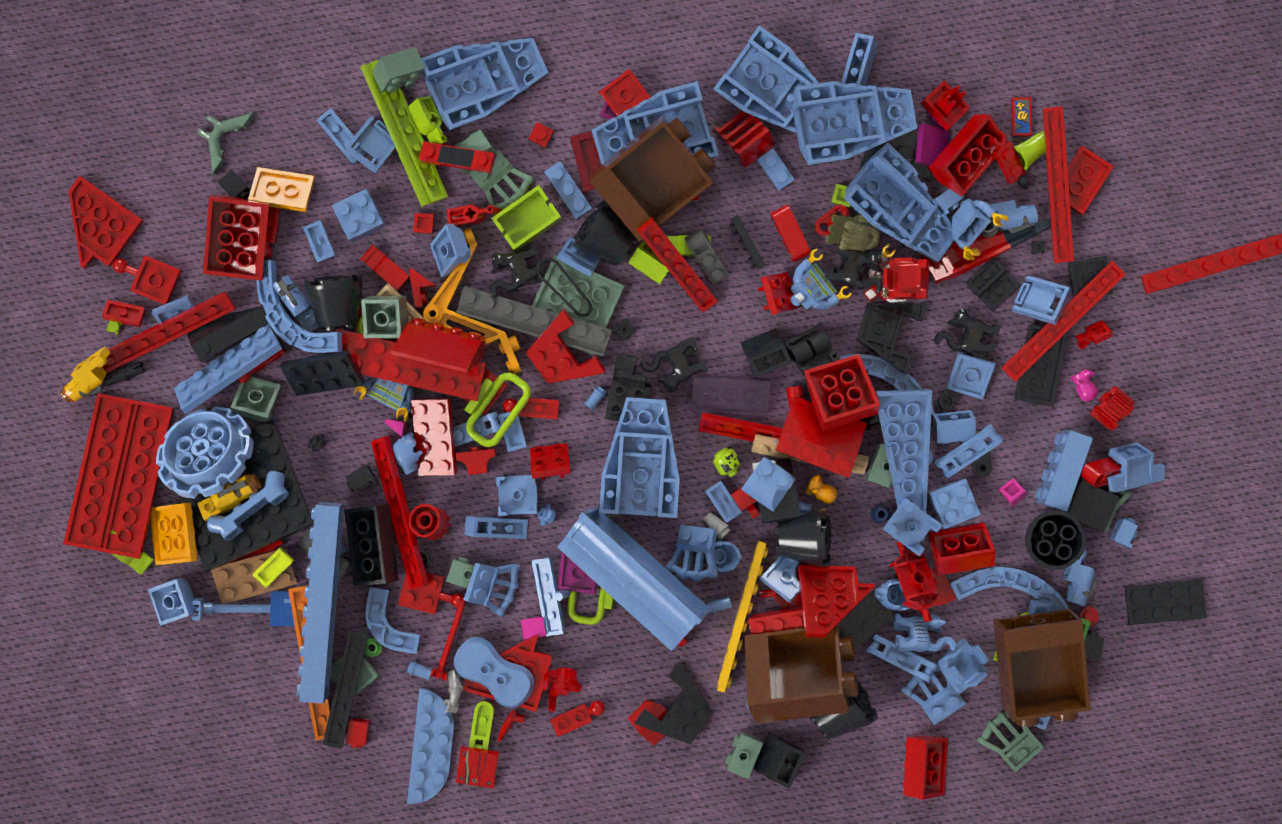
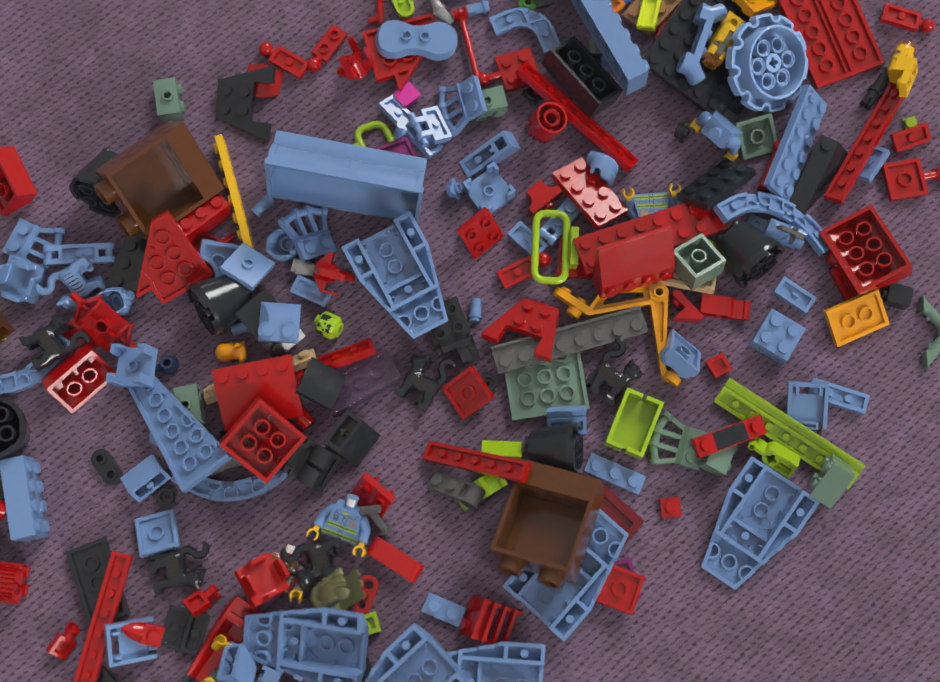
camera: 150 degrees right, 10 degrees down
(50, 421) = (905, 19): none -> red plate
(287, 419) = (719, 131): none -> medium blue torso
(361, 478) = (625, 125): black window -> none
(398, 426) = (623, 182): dark pink slope -> none
(464, 215) = (684, 396): red piece -> none
(527, 583) = (434, 123): none -> medium blue plate
(573, 283) = (559, 394): black piece -> none
(620, 729) = (284, 59): none -> red plate
(646, 330) = (468, 392): none -> red plate
(700, 506) = (327, 272): none -> red piece
(744, 501) = (293, 298): red brick -> none
(746, 243) = (428, 524): black plate -> none
(764, 411) = (320, 384): none -> black slope
(766, 552) = (247, 266): none -> medium blue plate
(779, 760) = (135, 111): black slope -> none
(785, 278) = (373, 510): none -> dark grey piece
(881, 327) = (262, 524): black wing -> none
(953, 503) = (108, 411): medium blue piece -> none
(968, 296) = (199, 601): none -> red plate
(969, 451) = (119, 463): medium blue plate -> none
(969, 591) = (47, 340): none -> black animal
(1013, 492) = (61, 455): dark pink slope -> none
(1026, 298) = (144, 633): none -> red plate
(1084, 386) = (47, 588): dark pink animal -> none

